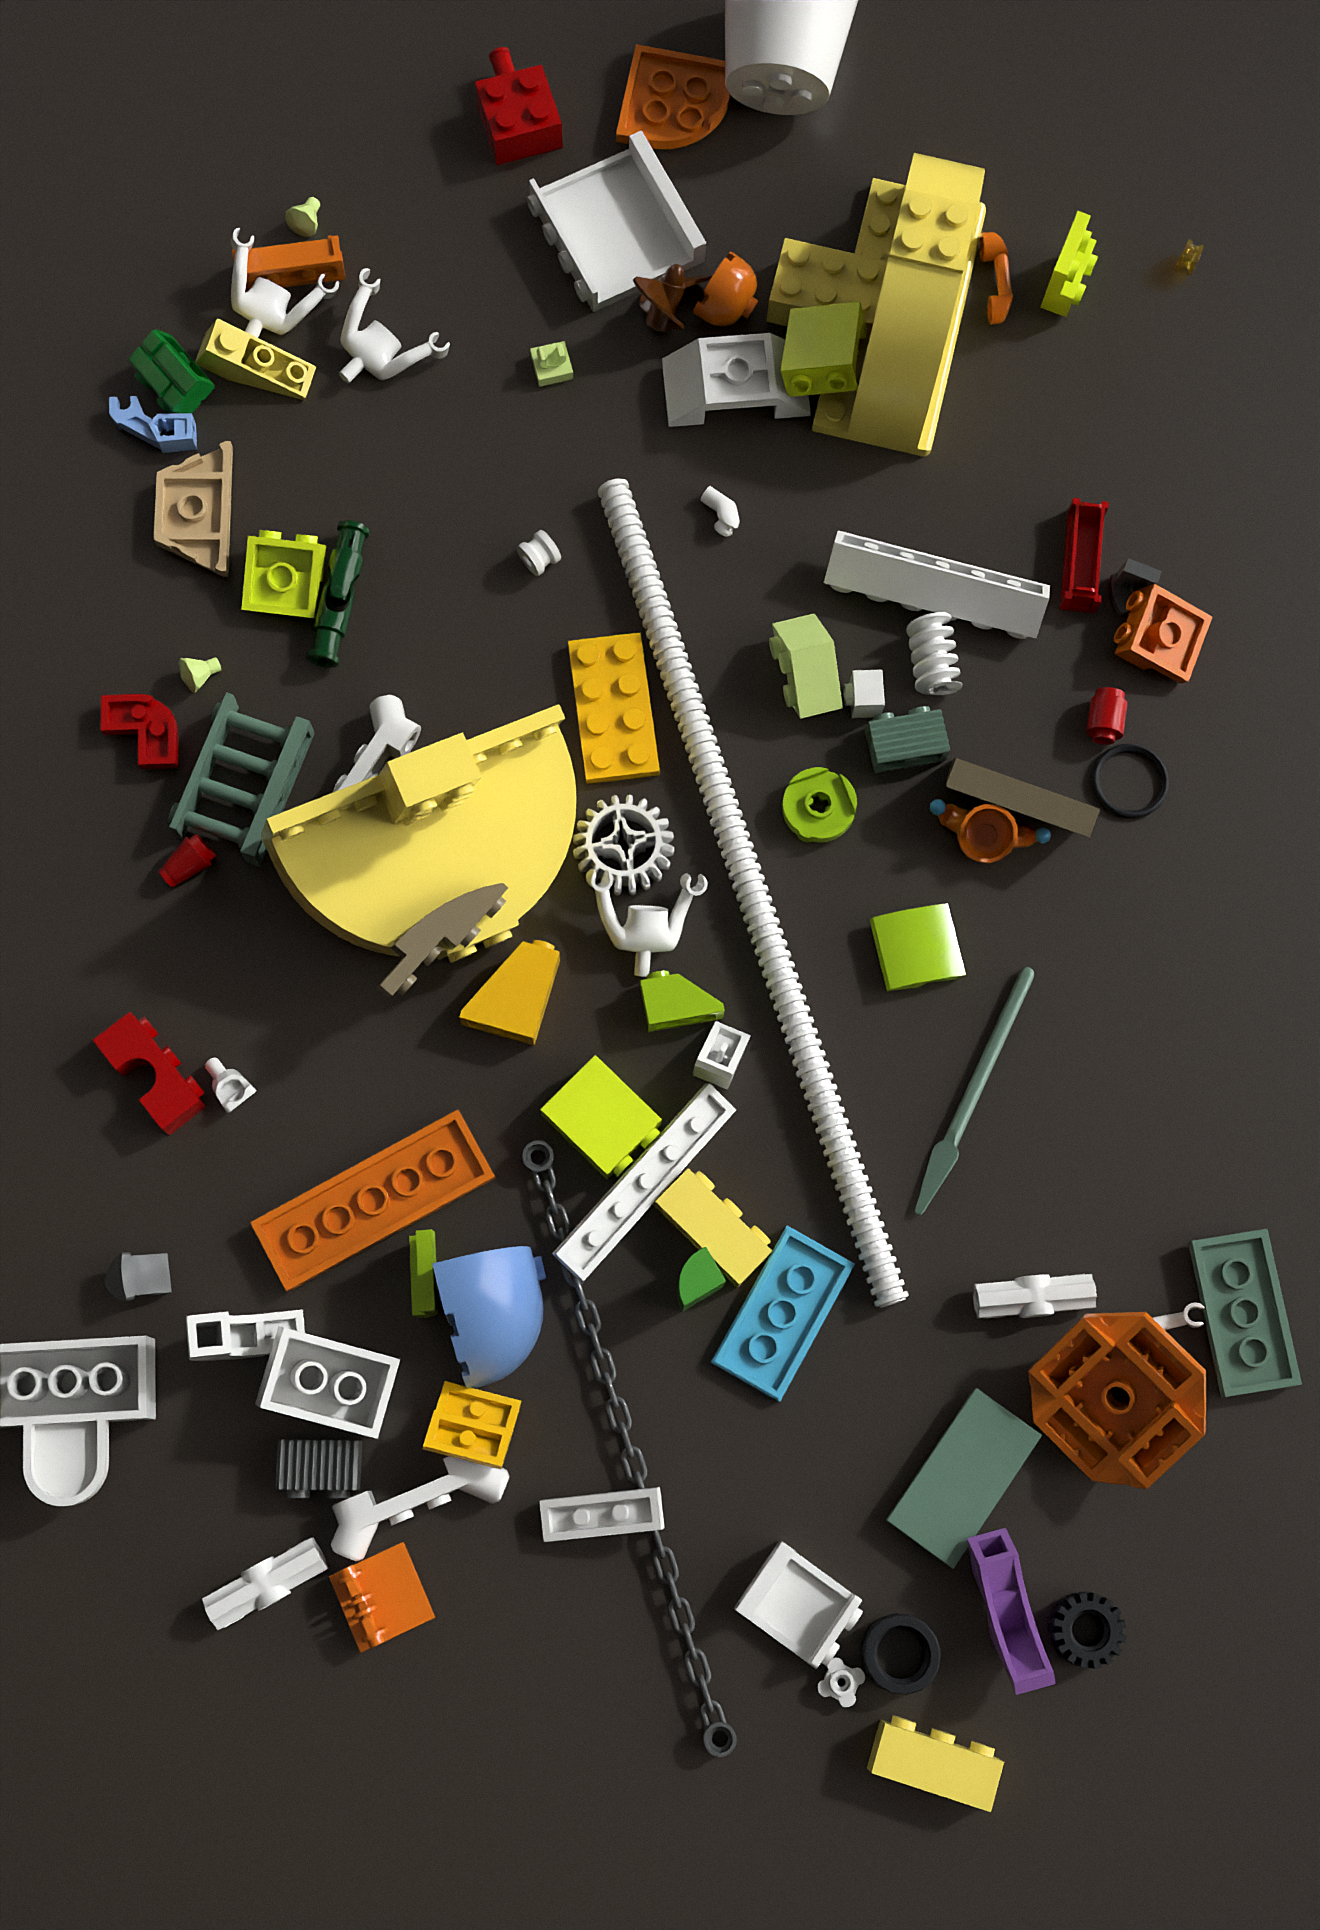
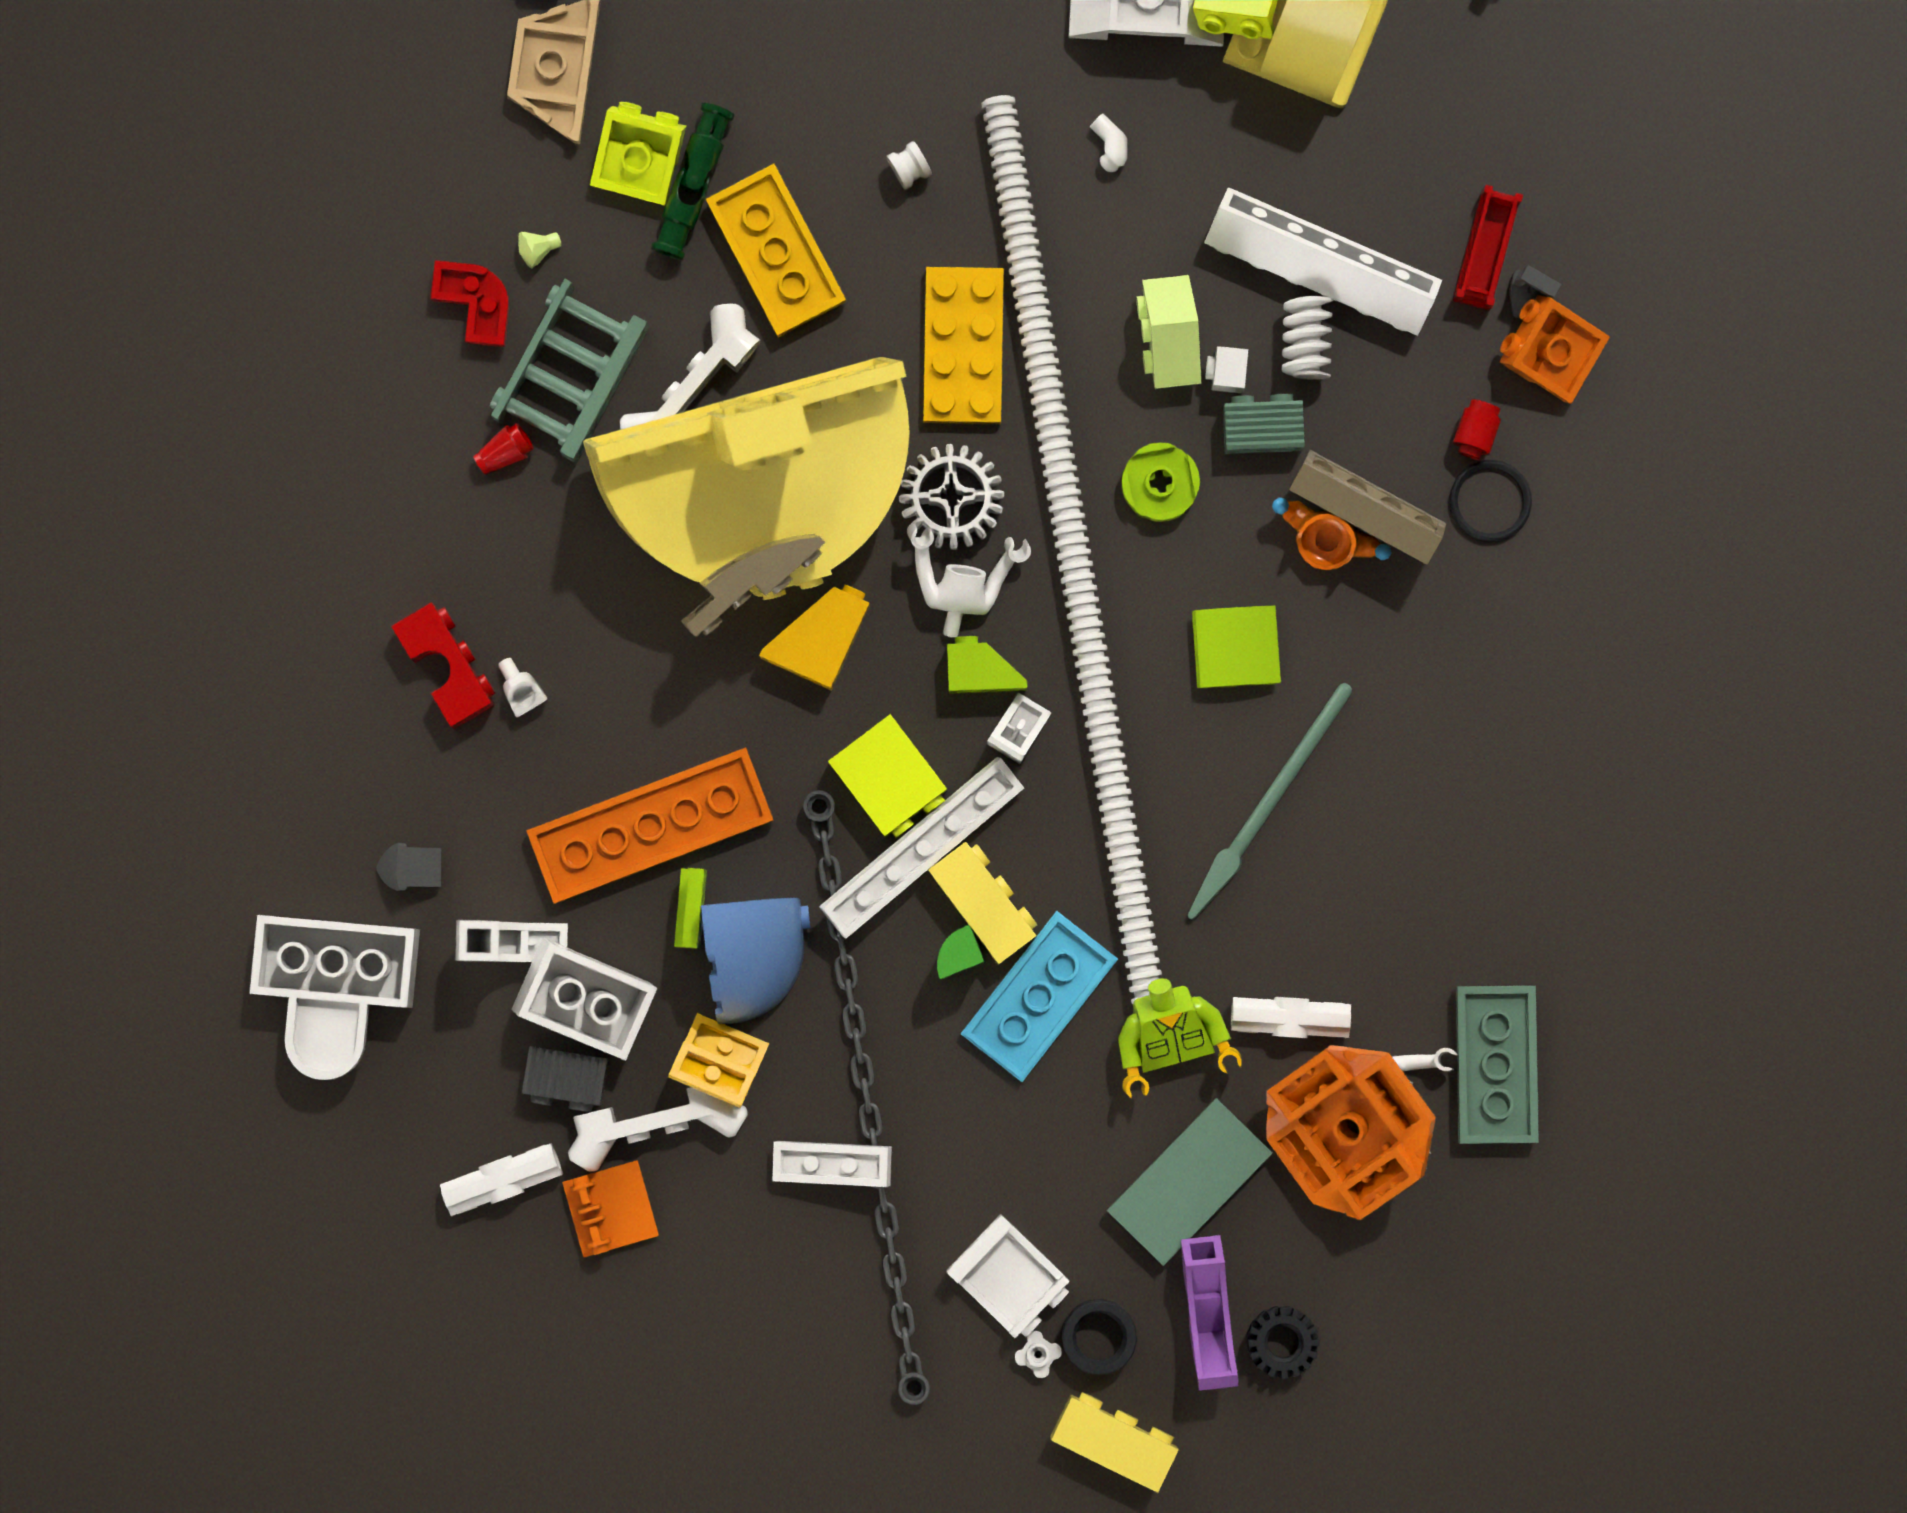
camera: 10 degrees right, 10 degrees up
(424, 645) = (776, 250): none -> yellow plate
(920, 1325) = (1168, 1030): none -> lime torso

